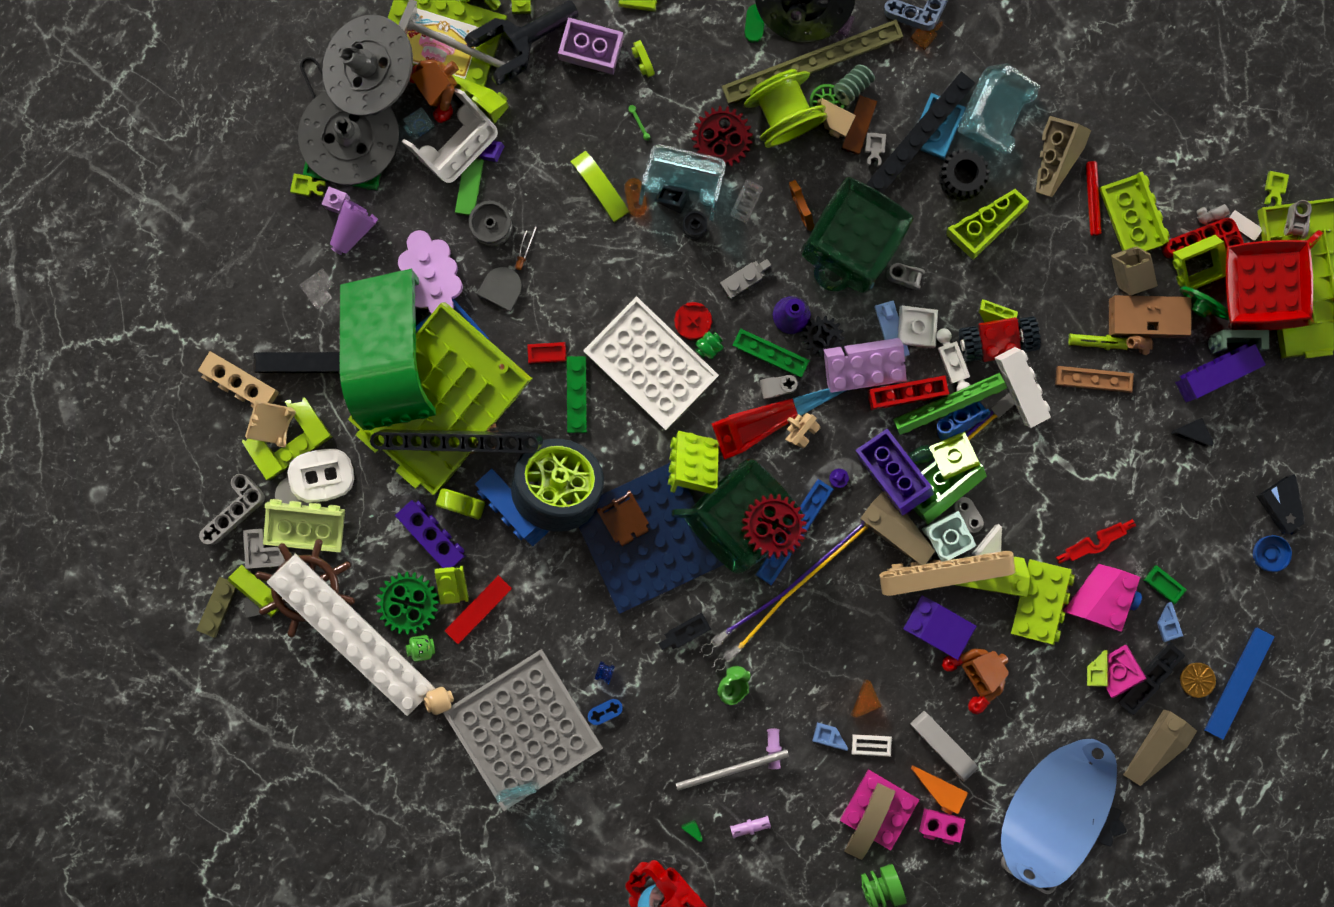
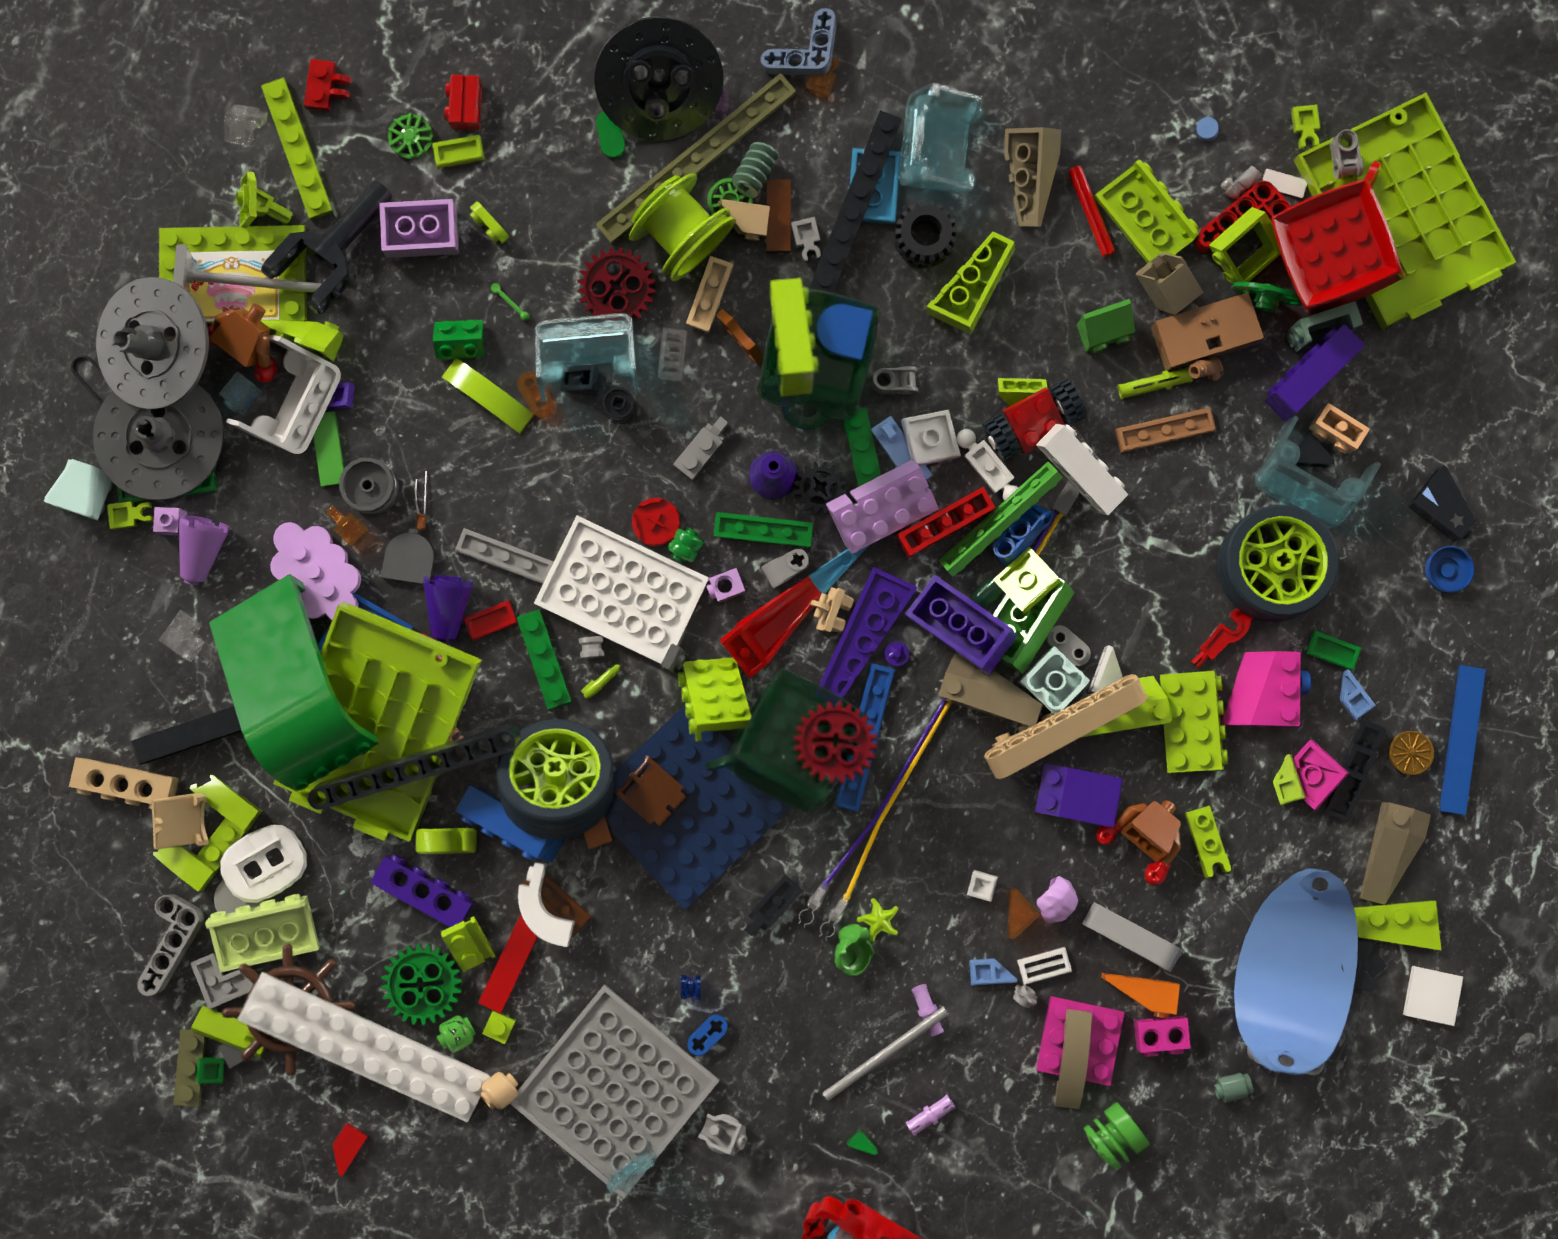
camera: 15 degrees left, 0 degrees up
(231, 614) = (210, 1070): none -> green tile
(278, 156) = (80, 490): none -> light aqua piece
(313, 704) = (347, 1146): none -> red tile
(453, 654) = (499, 1027): none -> lime plate
(465, 248) = (347, 526): none -> clear orange plate
(508, 580) = (539, 920): none -> white arch
(518, 330) = (446, 605): none -> dark purple cone
(526, 575) = (562, 904): none -> reddish brown tile
(572, 308) = (503, 556): none -> light grey tile
(574, 537) = (598, 834): none -> dark orange panel
(592, 137) = (458, 339): none -> green bracket
(593, 789) = (724, 1134): none -> light grey hand
(608, 427) = (595, 686): none -> lime piece
(614, 397) = (591, 647): none -> light grey wheel
(673, 426) = (674, 659): none -> dark grey plate
(735, 379) = (731, 576): none -> lavender brick
(760, 670) = (879, 920): none -> lime animal
(788, 166) = (709, 294): none -> tan plate
(828, 446) = (871, 619): none -> dark purple wing
(843, 216) = (792, 336): none -> lime wedge
(845, 670) = (982, 885): none -> white tile
(849, 762) = (1025, 996): none -> light grey plate
(864, 317) = (862, 447): none -> green plate
(882, 224) = (844, 330): none -> blue tile
(897, 700) = (1058, 901): none -> lavender hair
(982, 882) = (1233, 1087): none -> sand green brick
(1023, 694) = (1207, 840): none -> lime plate
(1076, 287) = (1107, 326): none -> bright green slope
(1145, 505) = (1278, 563): none -> wheel
(1148, 804) = (1400, 923): none -> lime wing
(1153, 865) = (1433, 995): none -> white tile
(1183, 459) = (1300, 489): none -> clear light blue windscreen
(1200, 166) = (1207, 129): none -> medium blue piece
(1224, 421) = (1338, 428): none -> light nougat brick

